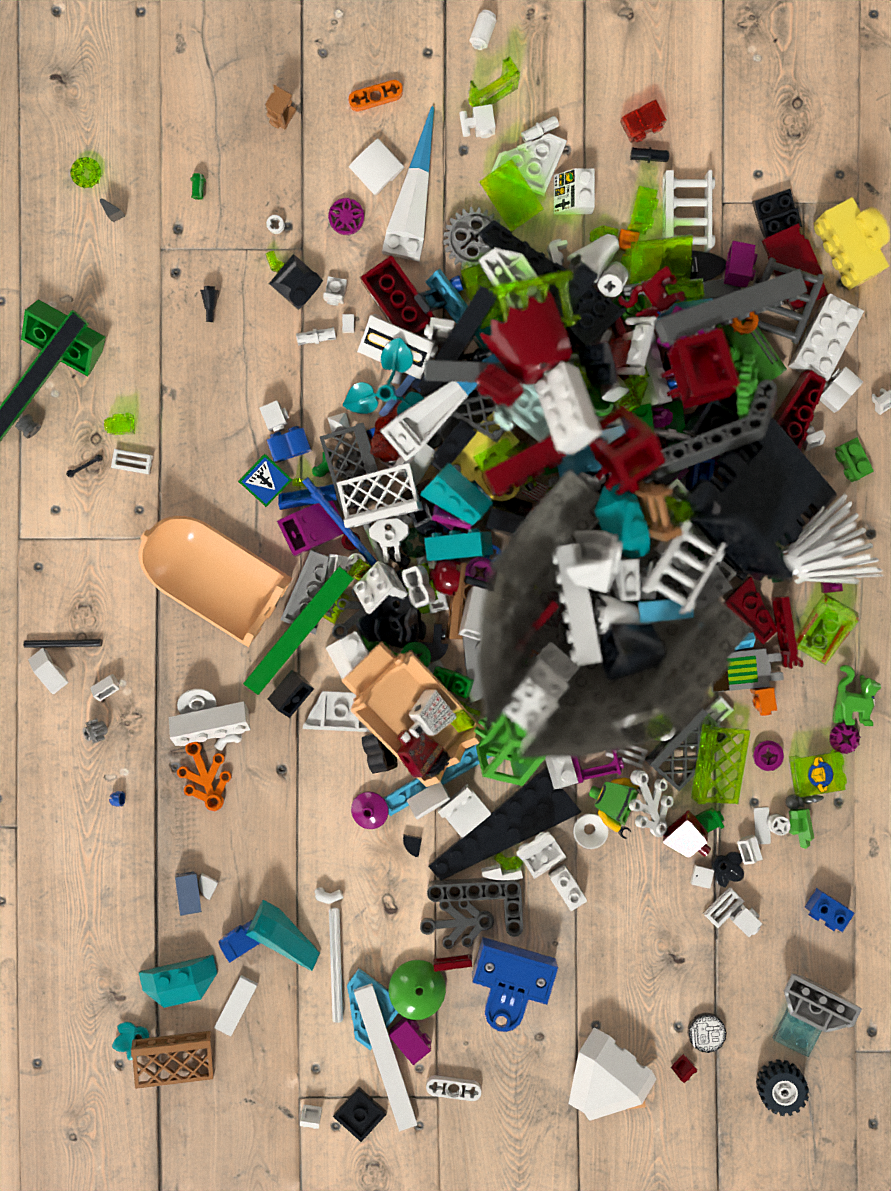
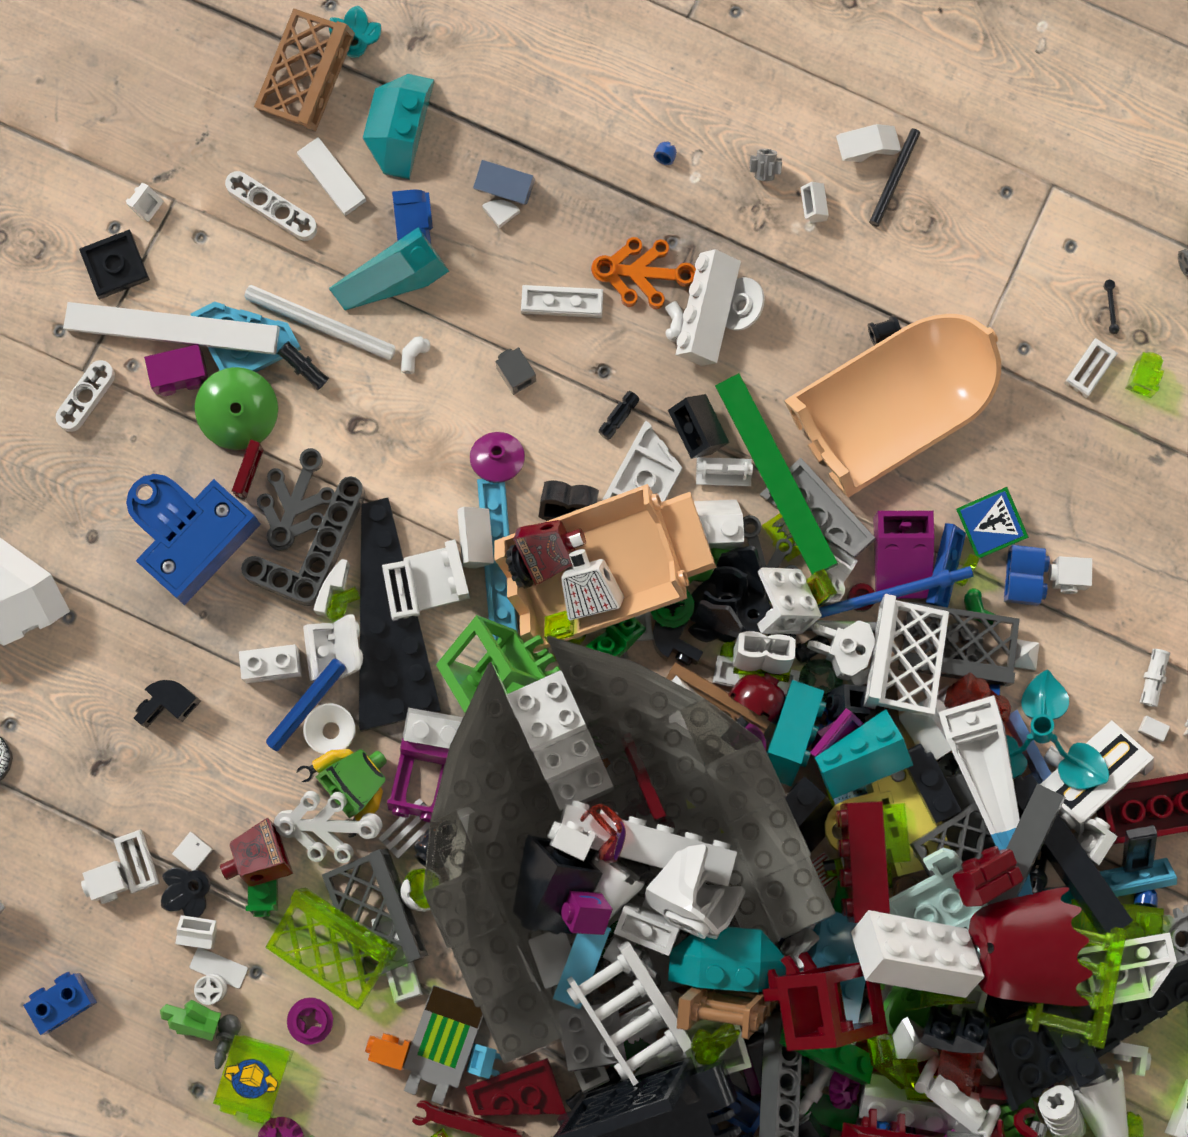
camera: 115 degrees right, 10 degrees down
(170, 604) = (883, 330): none -> black bush
(248, 818) = (562, 301): none -> white tile
(274, 1034) = (269, 208): none -> white beam
(305, 746) = (618, 415): none -> black axle
(308, 826) = (515, 370): none -> dark grey brick
(311, 663) = (724, 471): none -> white hinge
(370, 962) = (303, 365): none -> black pin
(412, 844) = (425, 490): black tile -> none
(485, 828) = (405, 612): none -> white tile
(582, 853) = (305, 704): none -> blue axle
(592, 624) = (612, 848): none -> clear red piece
(600, 652) = (570, 839): none -> white brick
(616, 938) = (167, 695): none -> black brick
(639, 622) = (586, 913): none -> magenta brick
(669, 630) = (550, 956): none -> white sticker

